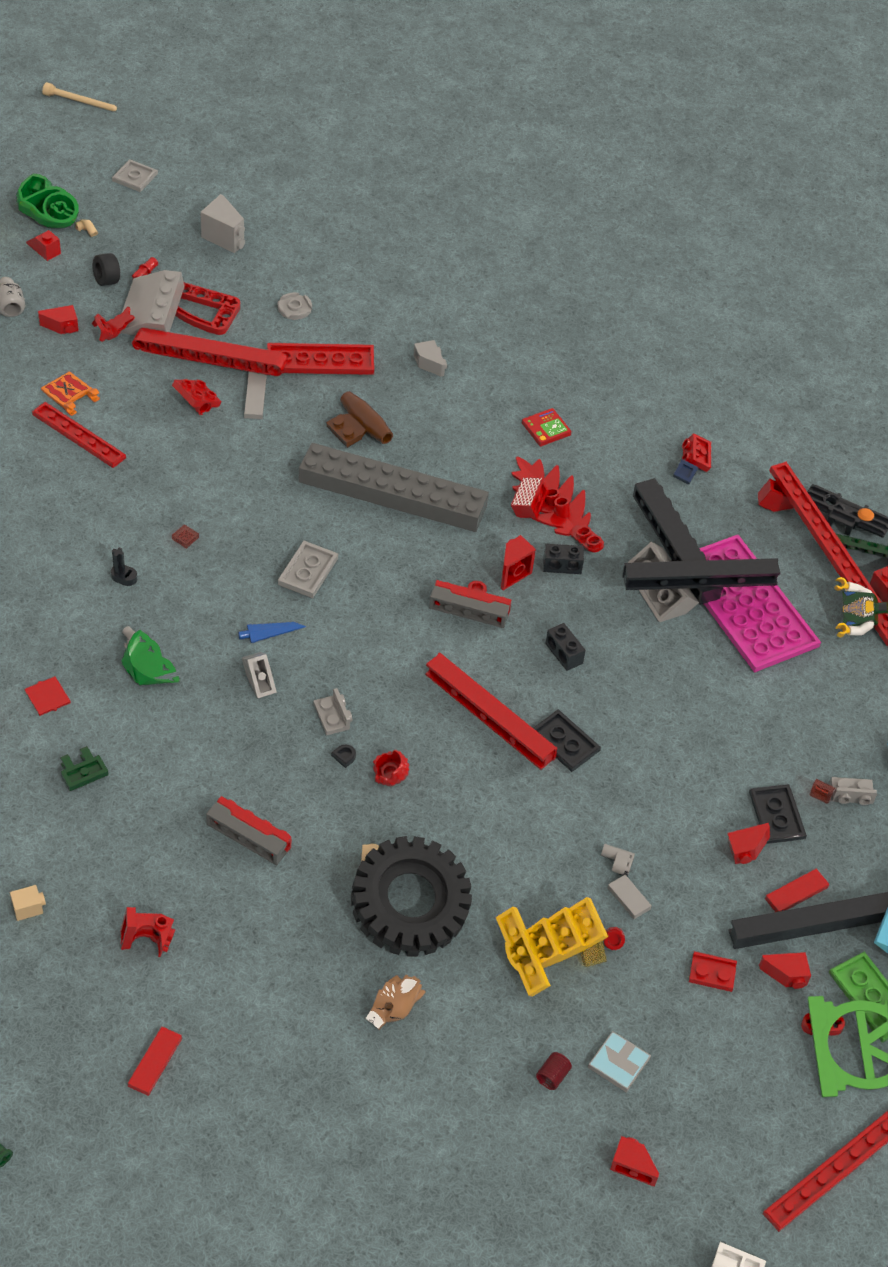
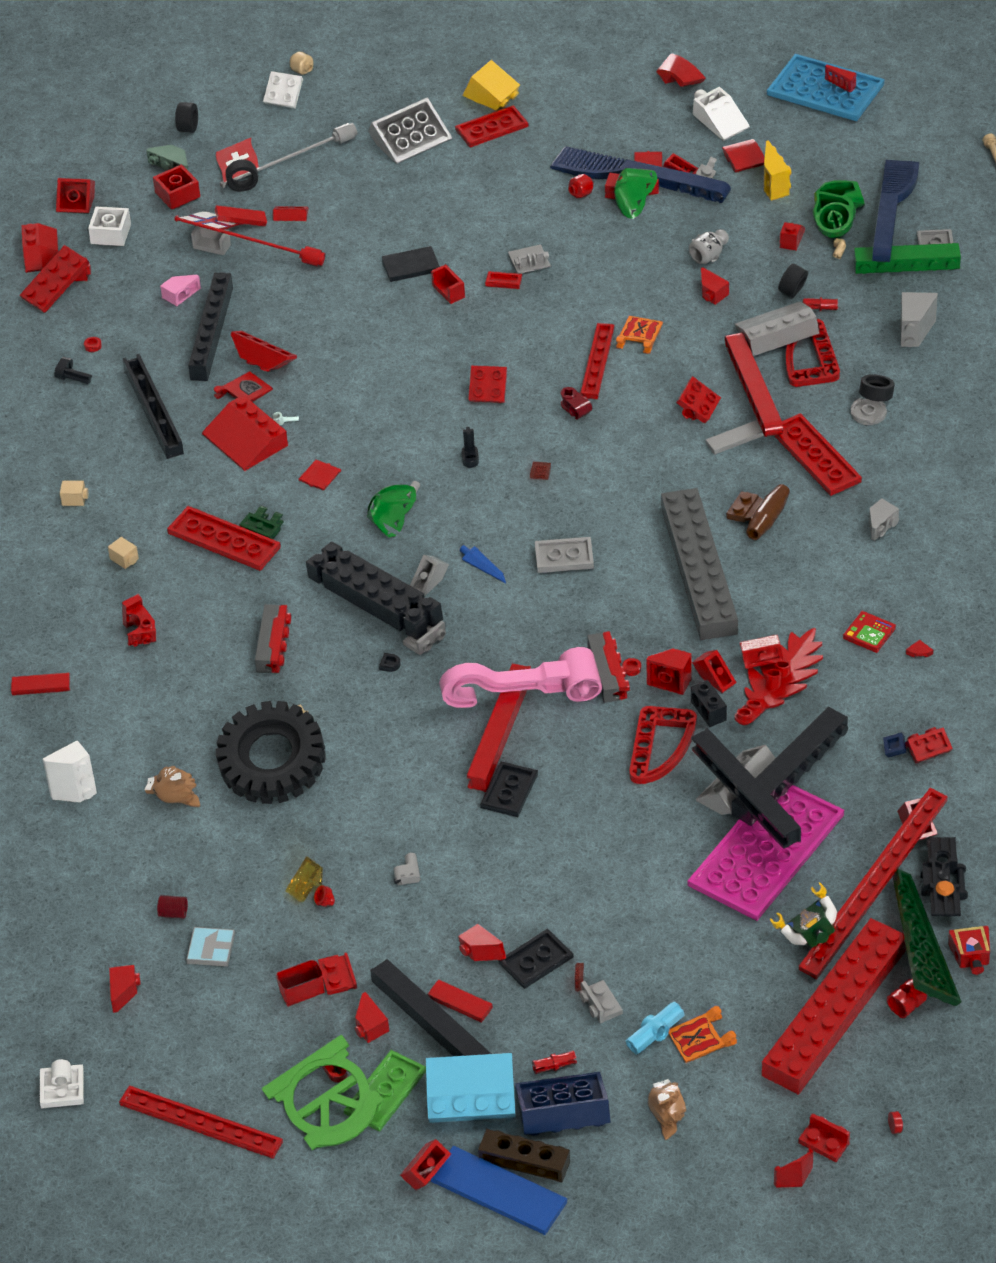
camera: 70 degrees right, 5 degrees down
(46, 517) = (488, 384): none -> red plate
(53, 161) = (897, 185): none -> dark blue piece
(74, 809) = (224, 538): none -> red plate
(113, 327) = (732, 318): red hair -> none
(126, 473) = (575, 403): none -> dark red piece
(141, 197) = (910, 258): none -> green brick
(252, 721) = (374, 590): none -> black brick
(279, 286) = (876, 387): none -> black tyre
(334, 1077) = (70, 774): none -> white slope
(390, 768) = (393, 694): red hair -> none
(472, 627) = (572, 673): none -> bright pink piece
(531, 534) = (713, 668): none -> red slope
(549, 940) = (280, 848): yellow slope -> none
(565, 646) = (607, 744): black brick -> none
(569, 616) = (656, 718): none -> red beam
(587, 408) = (919, 649): none -> red tile
(629, 896) = (375, 892): light grey tile -> none
(720, 984) = (297, 975): none -> red piece

